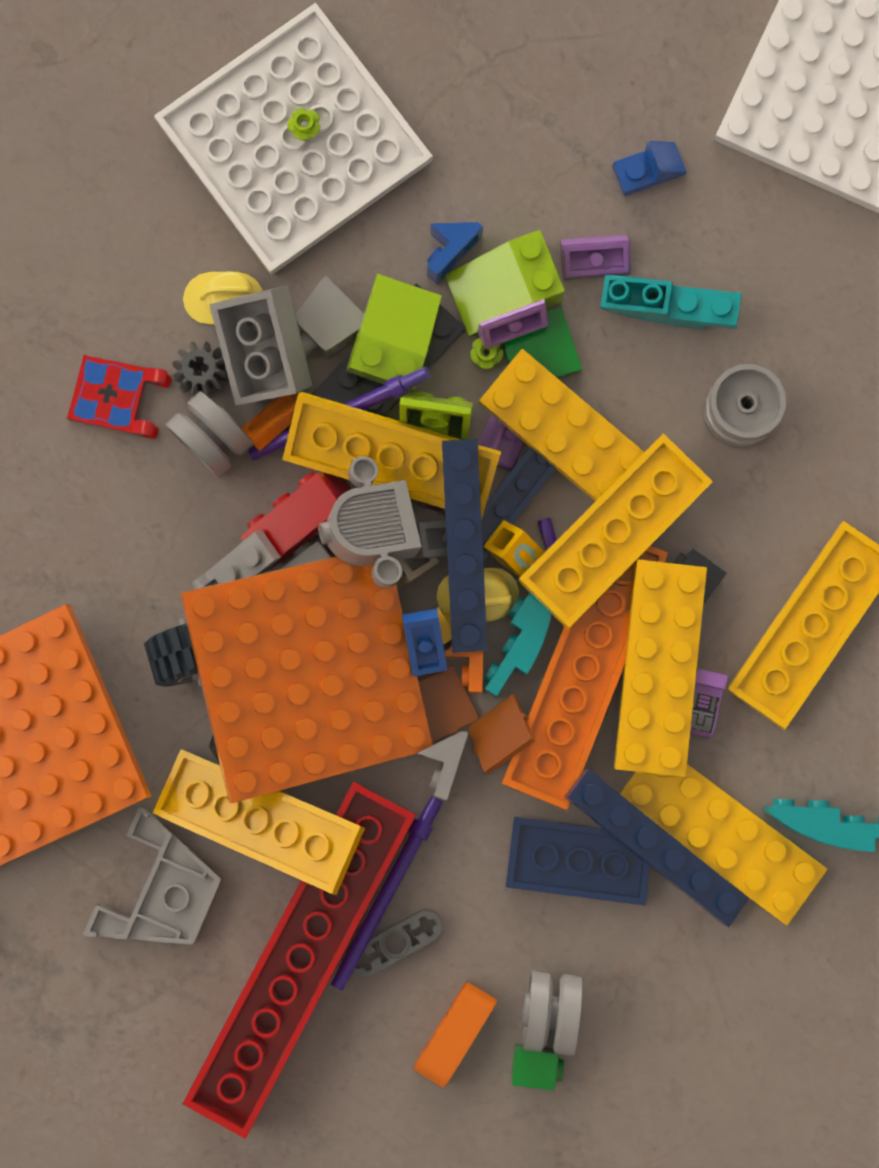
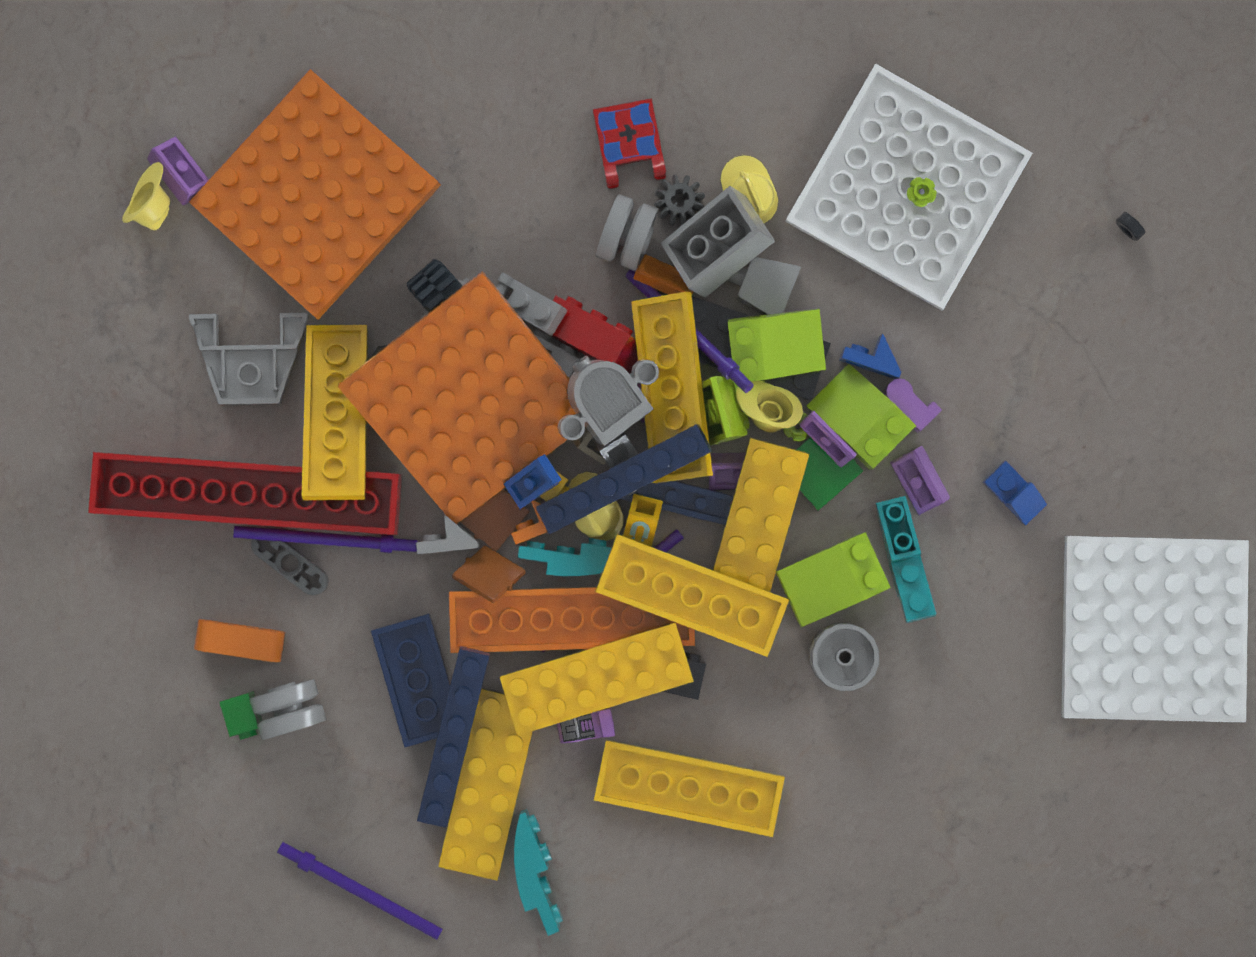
camera: 65 degrees right, 5 degrees up
(455, 368) = (770, 406): none -> light yellow piece
(501, 231) = (902, 395): none -> medium lavender leg
(660, 381) = (833, 579): none -> lime slope
(723, 1066) = (307, 861): none -> dark purple bar

